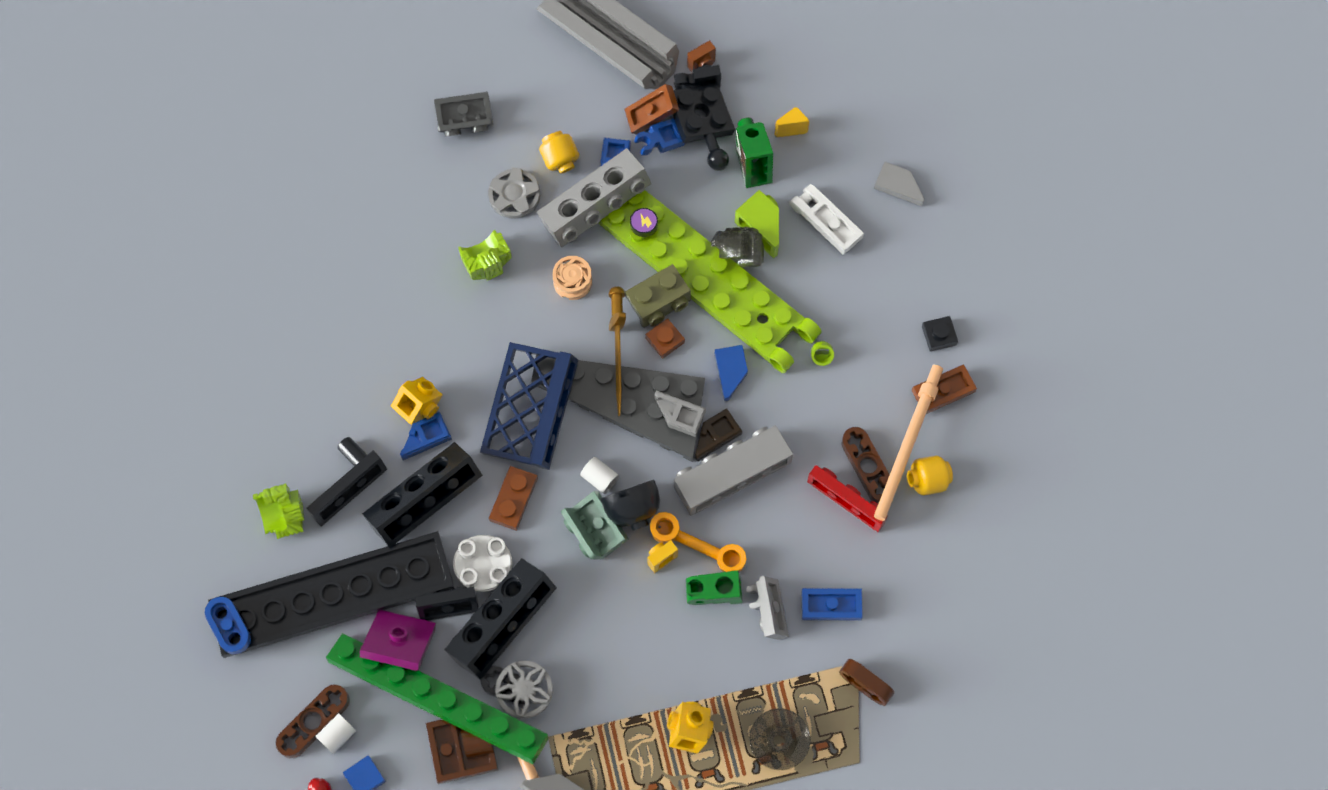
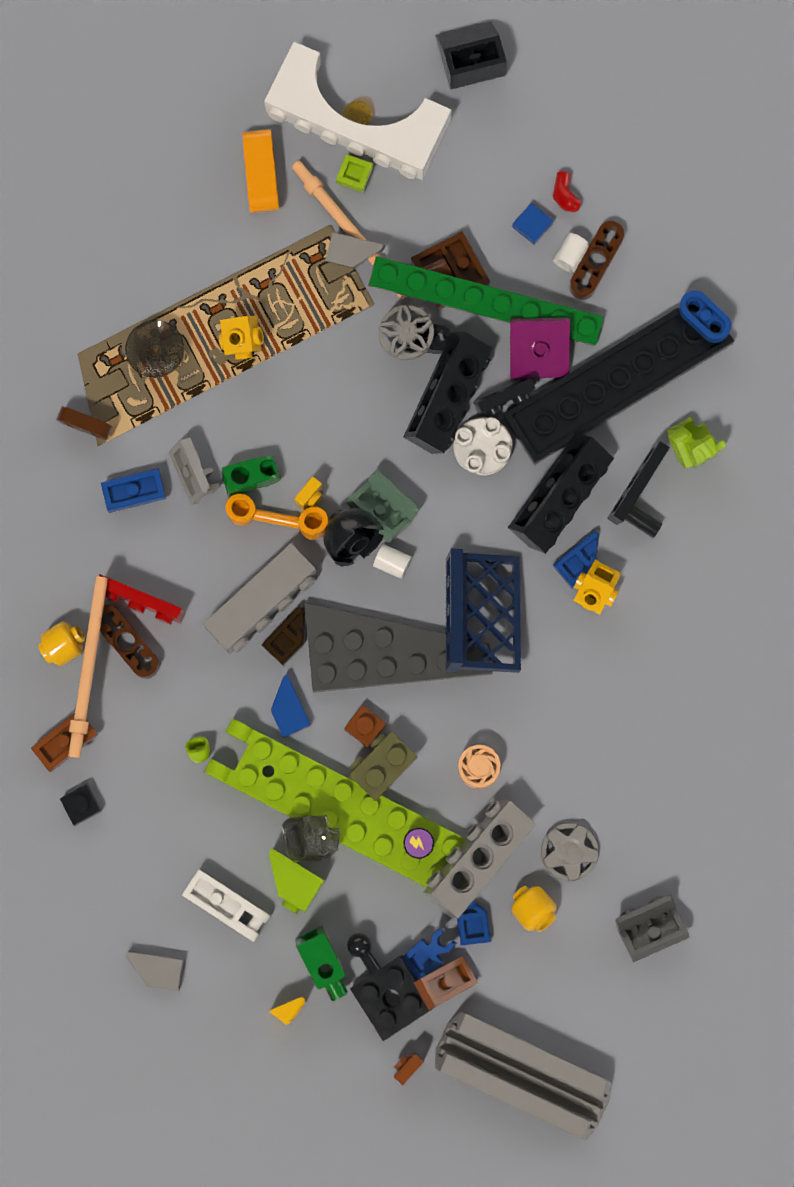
camera: 170 degrees right, 10 degrees up
(486, 258) = (577, 765): lime hair -> none
(513, 498) = (472, 519): dark orange plate -> none
(616, 324) = (416, 724): pearl gold sword -> none
(680, 414) = (326, 640): light grey tile -> none
(699, 77) = (399, 1044): black plate -> none

